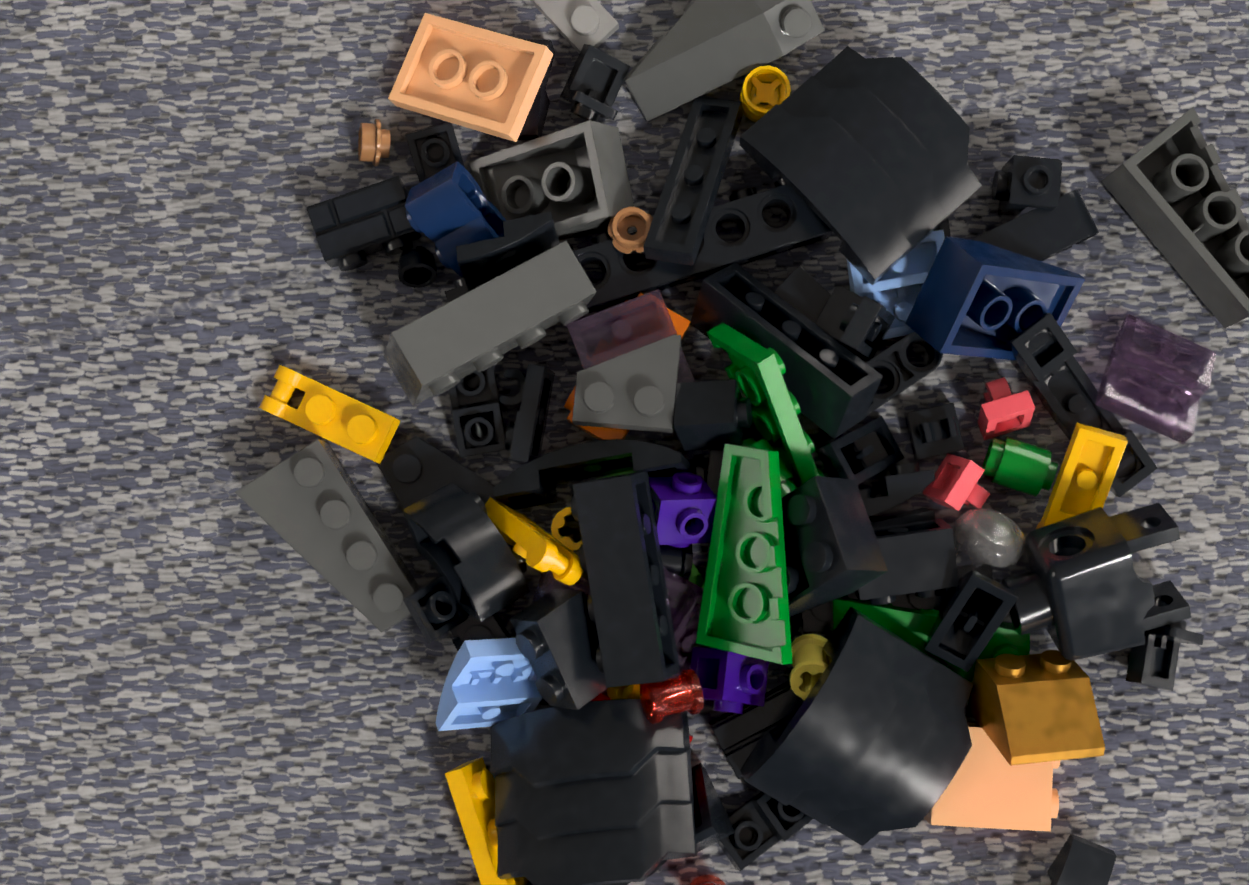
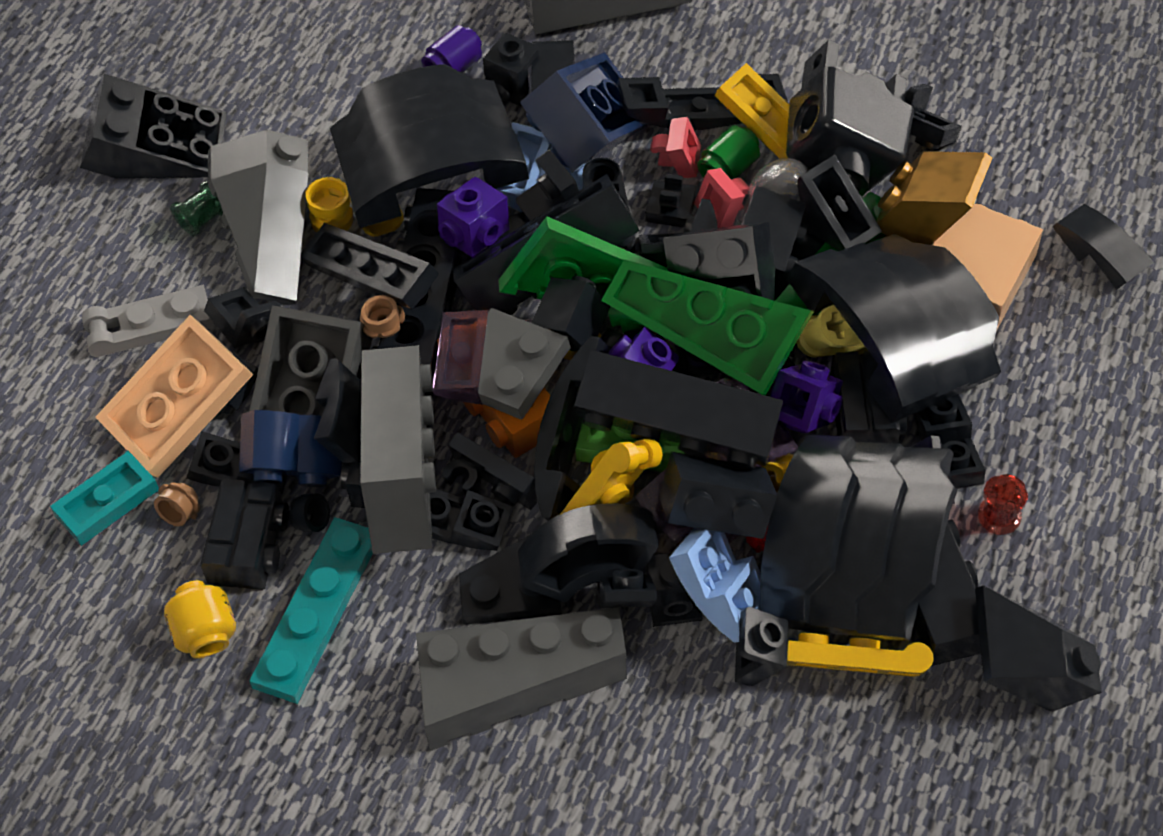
camera: 65 degrees left, 30 degrees down
(266, 233) = (200, 619): none -> yellow head
(322, 324) = (314, 611): none -> teal plate
(332, 415) = (393, 637): yellow plate -> none
(347, 73) = (104, 498): none -> teal plate
(450, 746) = (760, 646): none -> black bracket
(672, 696) = (805, 431): clear red bush -> none
(786, 257) = (473, 216): none -> dark purple brick
(1025, 111) = (456, 48): none -> dark purple brick
(1156, 379) = (707, 52): clear purple slope -> none

